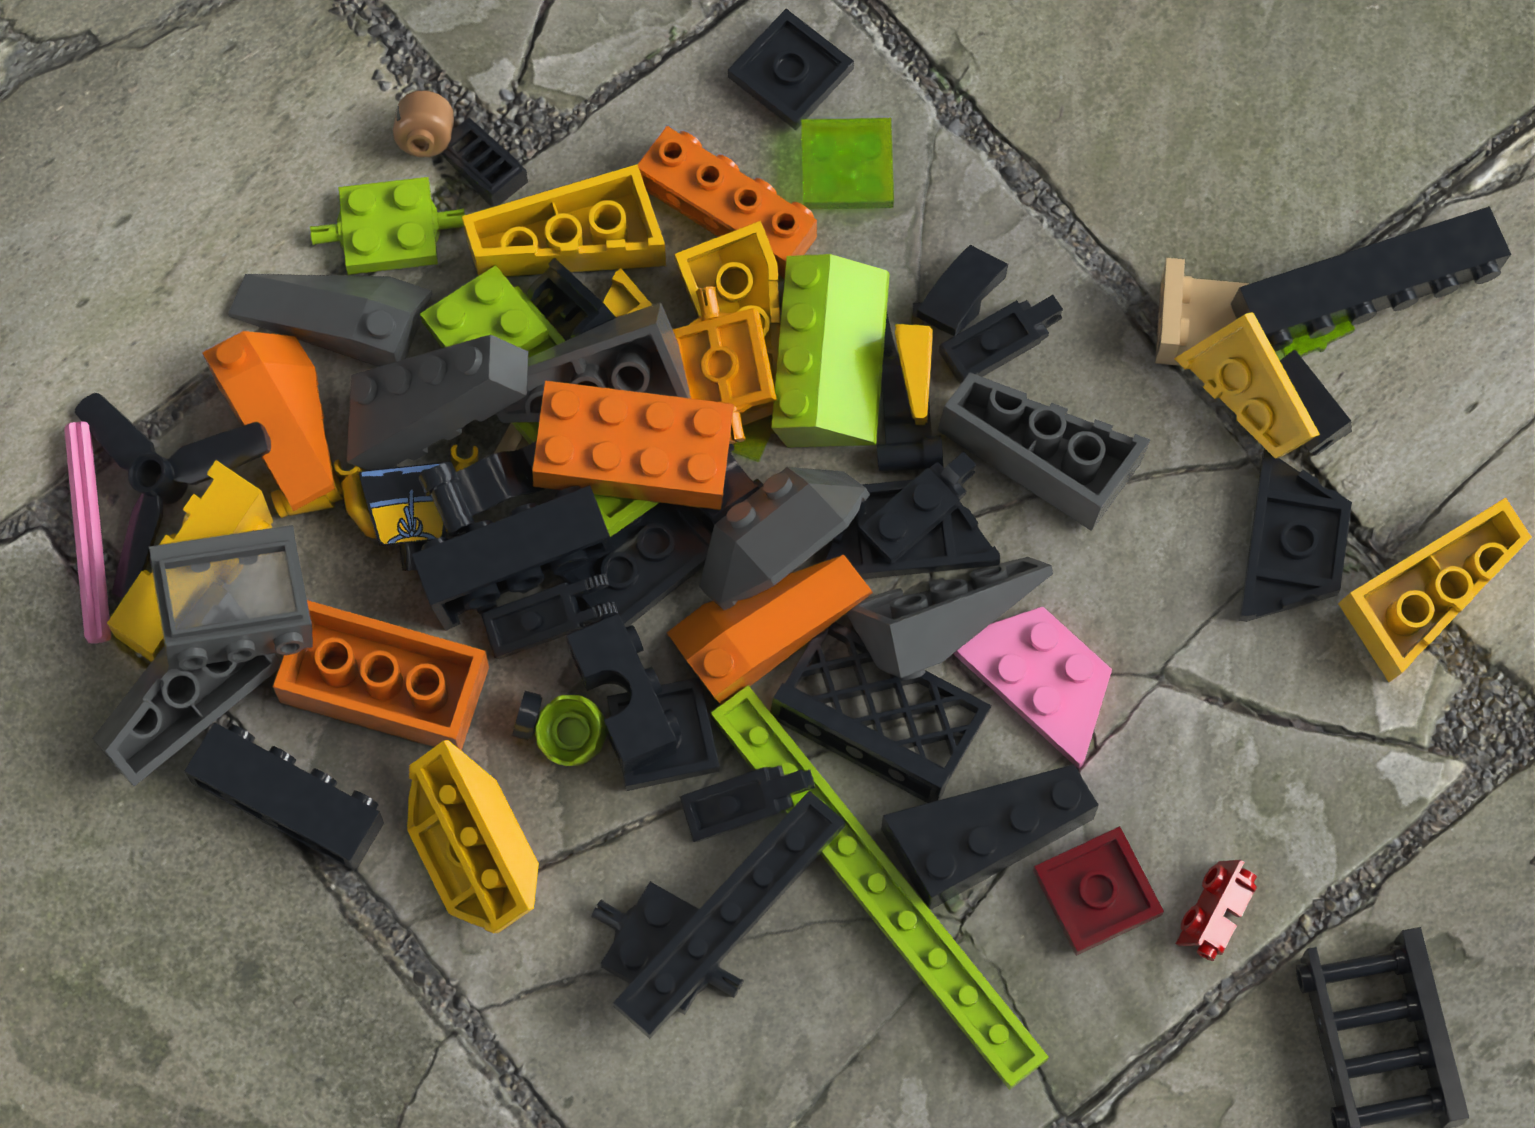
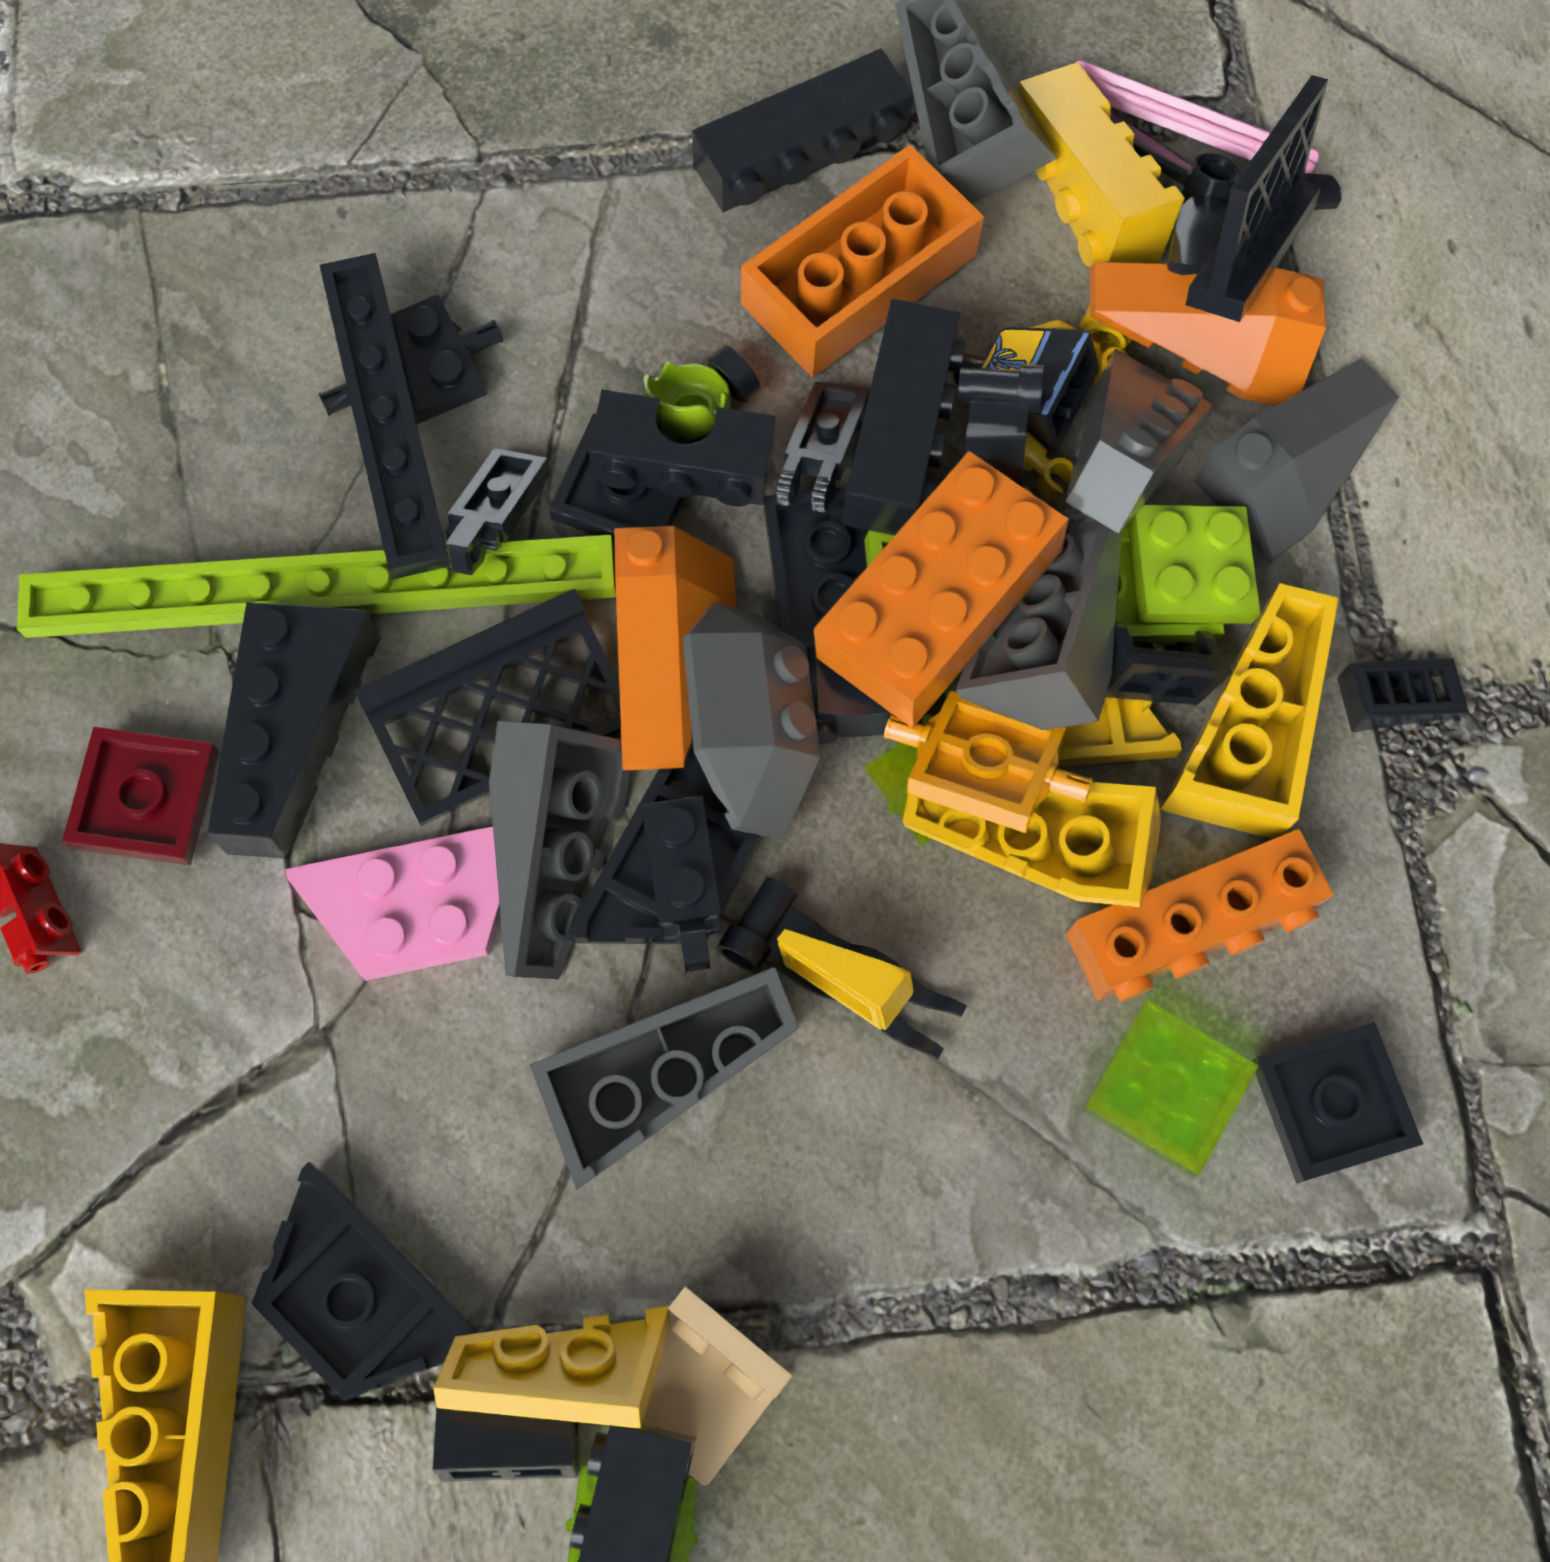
camera: 120 degrees right, 0 degrees up
(199, 404) = (1262, 212): none -> black fence
(231, 597) = (1019, 132): window -> none
(387, 225) = (1377, 557): lime plate -> none
(423, 124) = (1484, 648): medium nougat head -> none
(470, 840) = (632, 255): yellow wedge -> none
(830, 352) = (936, 904): lime slope -> none
(960, 289) = (923, 1112): black slope -> none
(1000, 337) = (834, 1118): black hinge -> none

